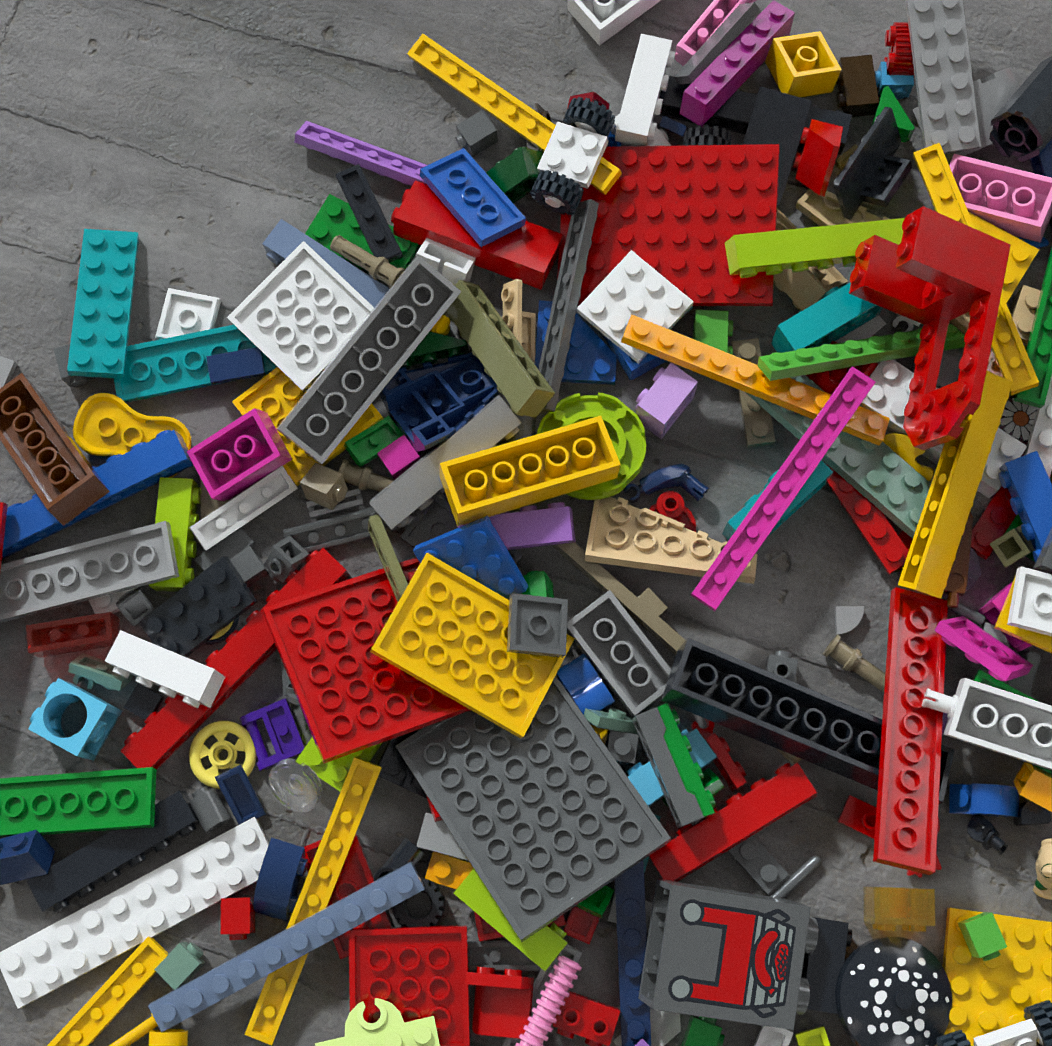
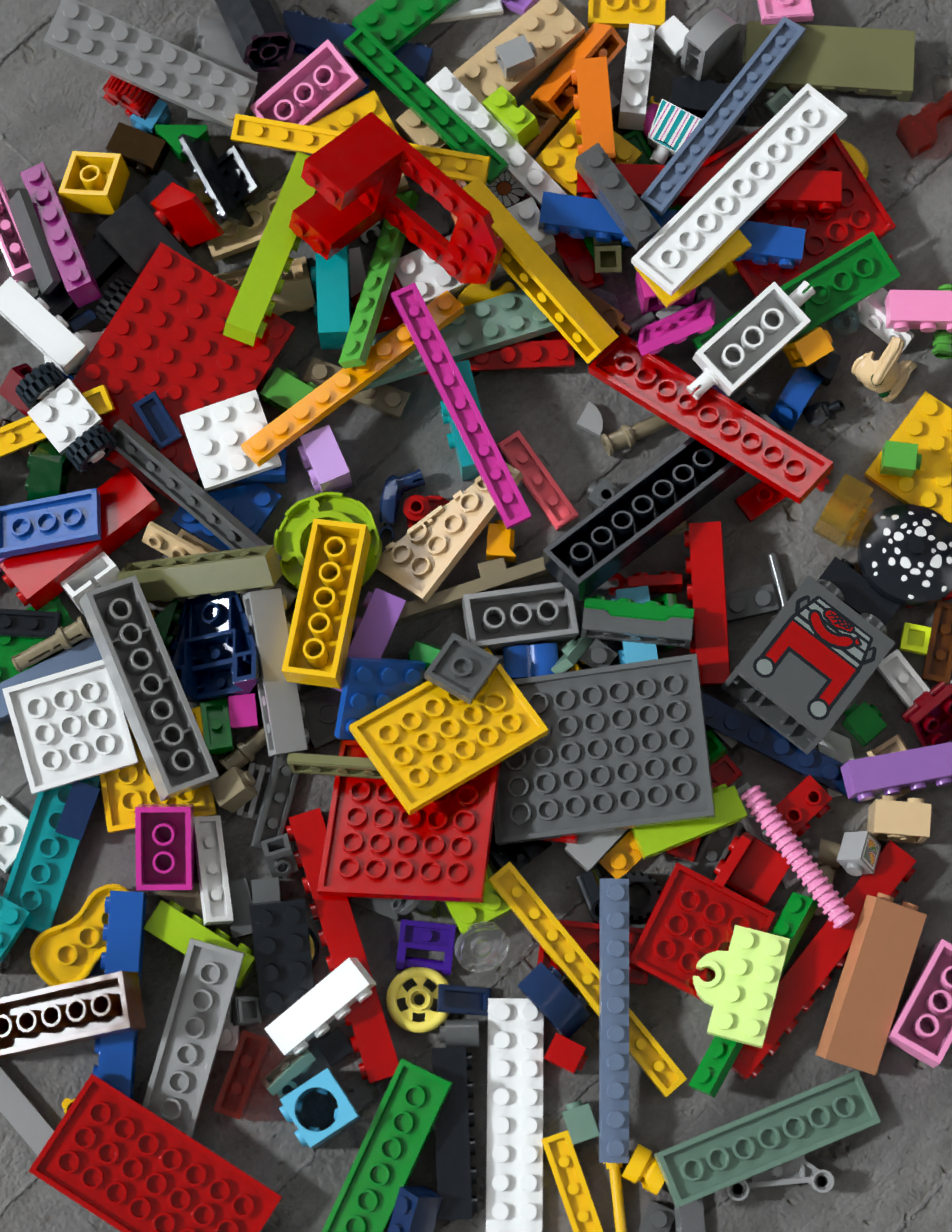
camera: 65 degrees left, 0 degrees up
(617, 235) = (157, 420): none -> dark blue tile
(679, 598) = (500, 542): none -> light orange window
(761, 601) = (538, 480): none -> coral tile

